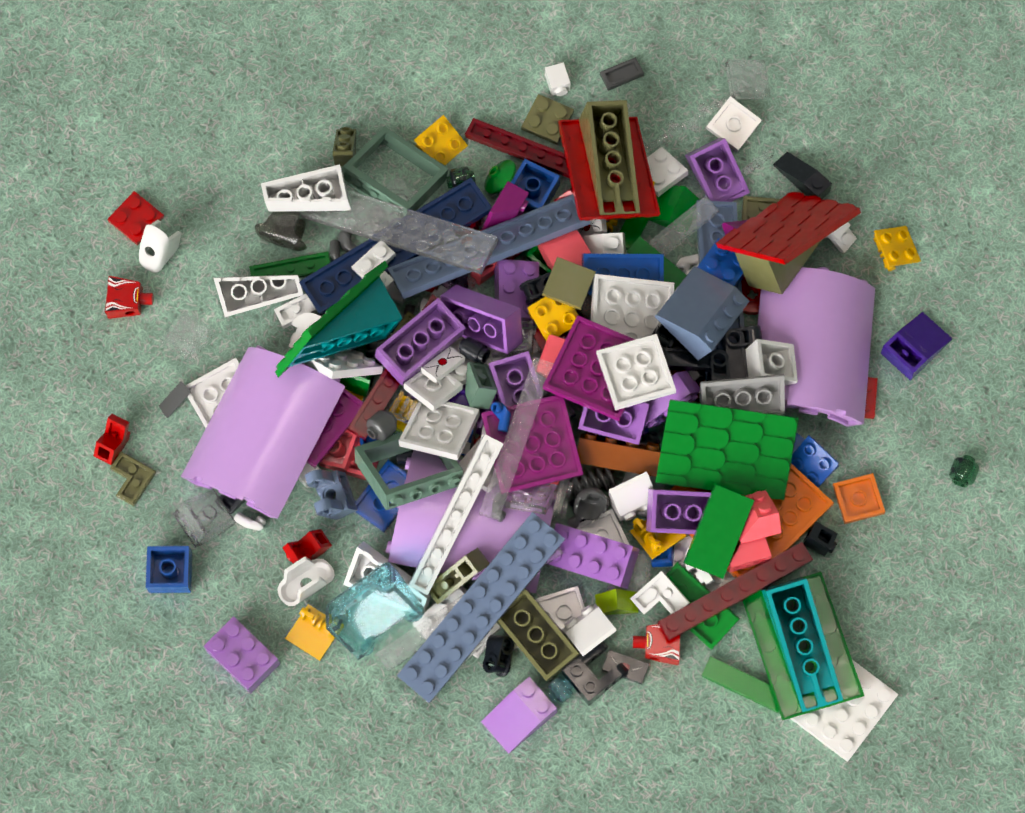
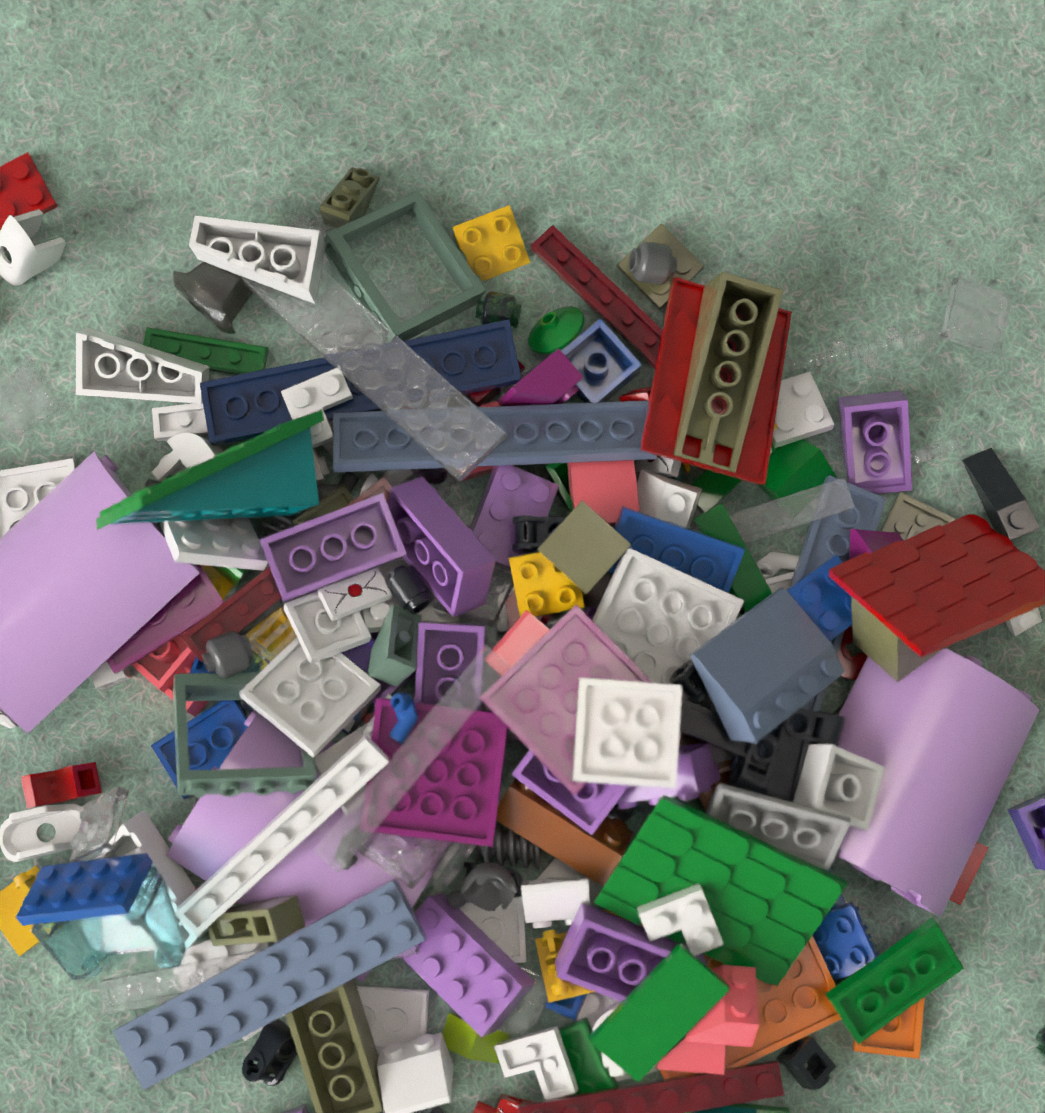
camera: 20 degrees right, 10 degrees up
(326, 485) = (132, 722): sand blue brick -> none
(334, 249) = (276, 350): dark grey arm -> none
(340, 559) = (99, 825): none -> clear plate
(345, 241) = (298, 348): dark grey arm -> none
(348, 593) = (84, 889): none -> blue plate
(542, 116) = (652, 263): none -> dark grey head
(557, 79) = (697, 212): white brick -> none
(621, 73) = (795, 237): dark grey tile -> none
(709, 467) = (683, 911): none -> white plate
(733, 123) = (929, 377): white plate -> none
(851, 469) = (894, 980): none -> green tile

